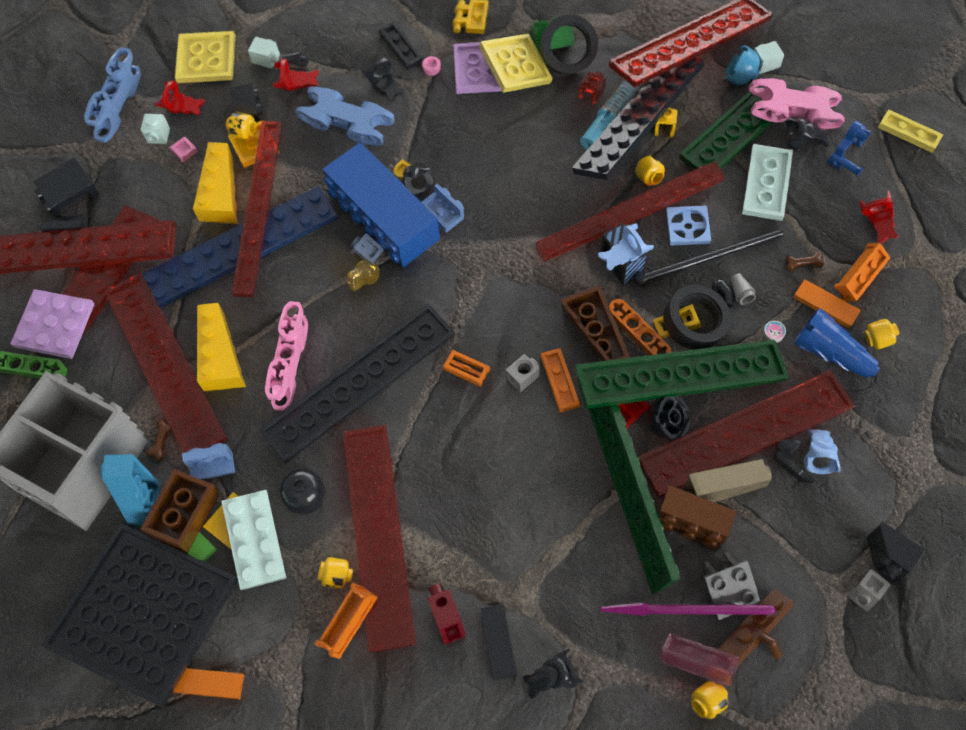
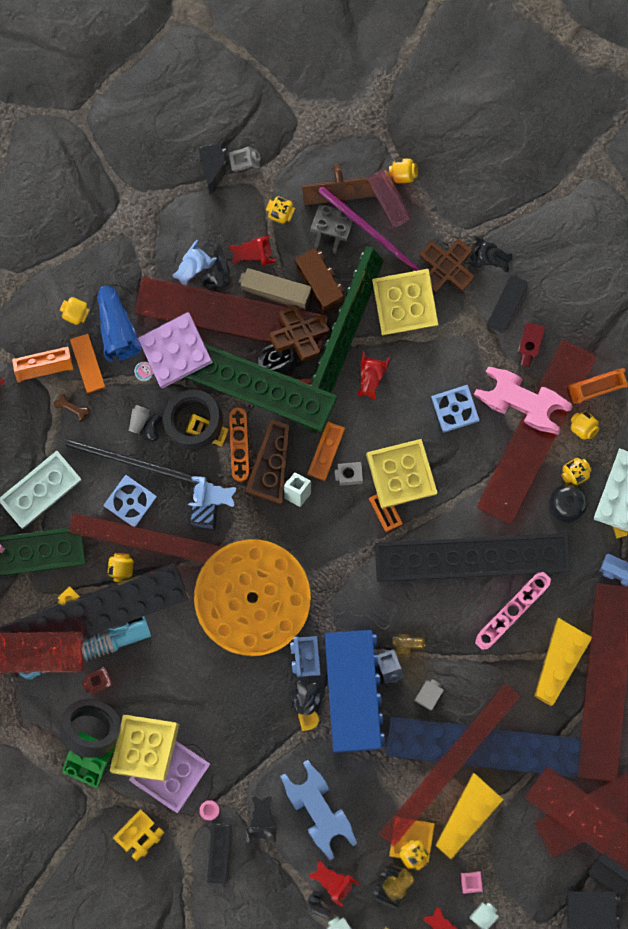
camera: 145 degrees left, 15 degrees up
(237, 95) = (397, 887): none -> clear yellow plate
(312, 522) = (576, 471): none -> yellow head
(315, 249) = (429, 694): none -> light grey brick
(397, 550) = (536, 406): none -> bright pink piece
(469, 478) = (464, 390): none -> light blue piece
(476, 404) = (401, 473): none -> light yellow plate
(528, 244) = (248, 626): none -> light orange plate
(557, 324) = (297, 489): none -> light aqua brick
(572, 469) = (371, 373): none -> red hair
(587, 633) = (448, 265): none -> reddish brown plate
(598, 563) = (405, 302): none -> light yellow plate
(670, 451) = (298, 333): none -> reddish brown plate
(765, 360) = (175, 350): none -> lavender plate
(778, 509) = (256, 249): none -> red hair
(791, 563) = (280, 210): none -> yellow head

